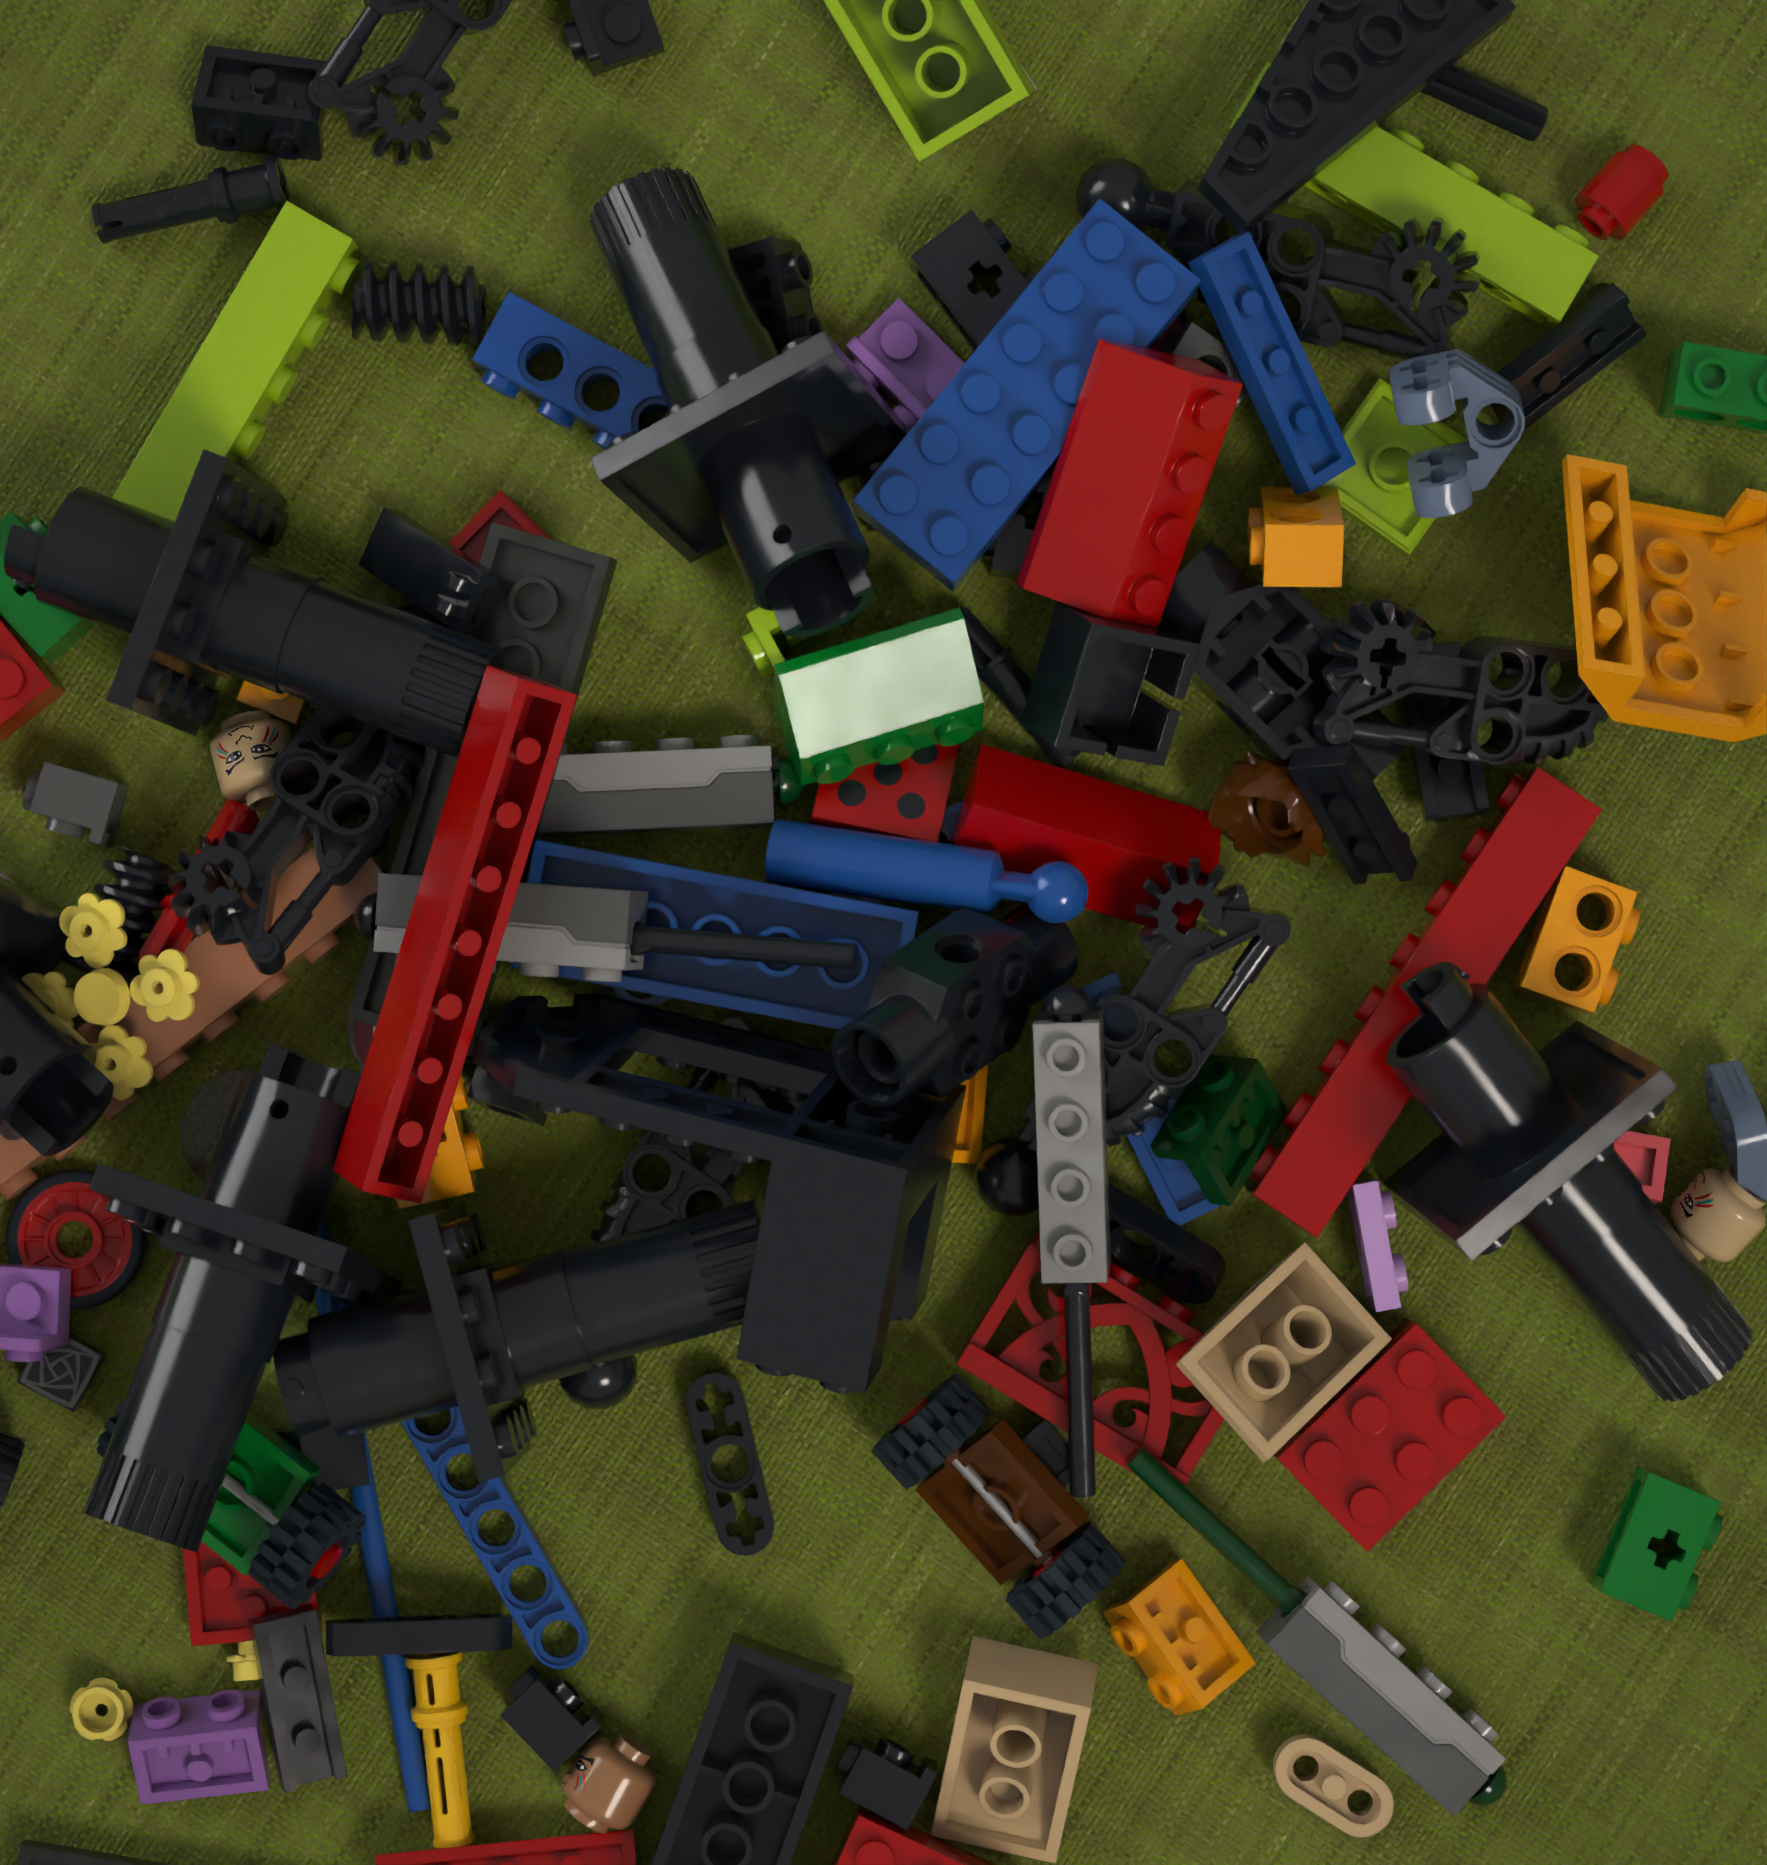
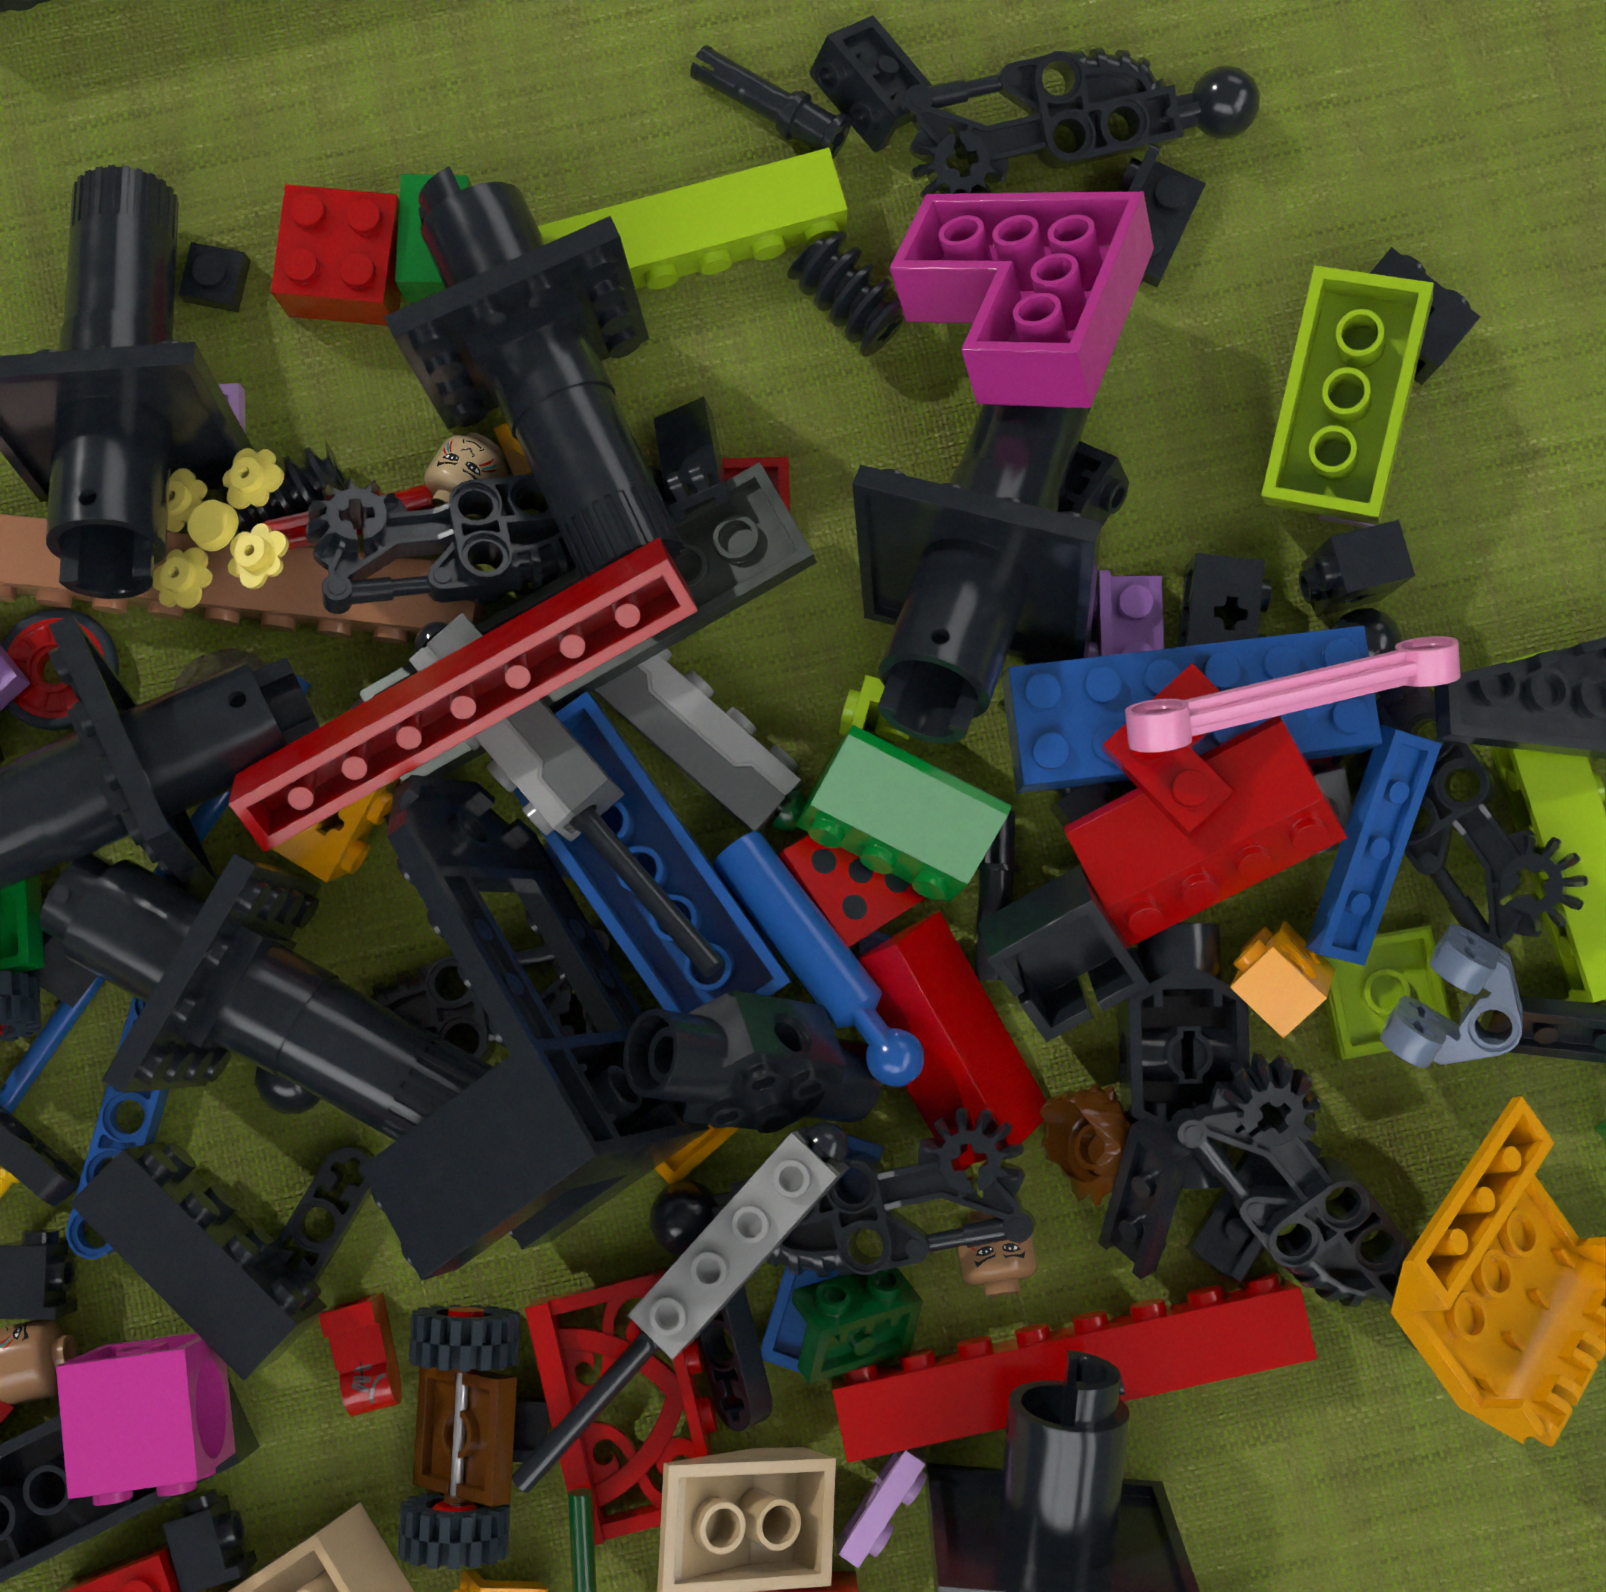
camera: 50 degrees right, 5 degrees down
(76, 802) = (330, 397): dark grey brick -> none
(525, 331) = (899, 372): blue brick -> none
(576, 153) = (1037, 280): none -> dark pink brick
(668, 1561) = (200, 1255): none -> black brick
(751, 1707) = (144, 1417): none -> dark pink brick
(865, 1524) = (363, 1354): none -> red leg
(1022, 430) = (1171, 723): none -> bright pink piece
(1029, 454) = (1178, 778): none -> red plate
(1050, 147) = (1356, 568): none -> black brick
(1289, 975) = (997, 1264): none -> medium nougat head
(1561, 933) = (1208, 1413): light orange brick -> none

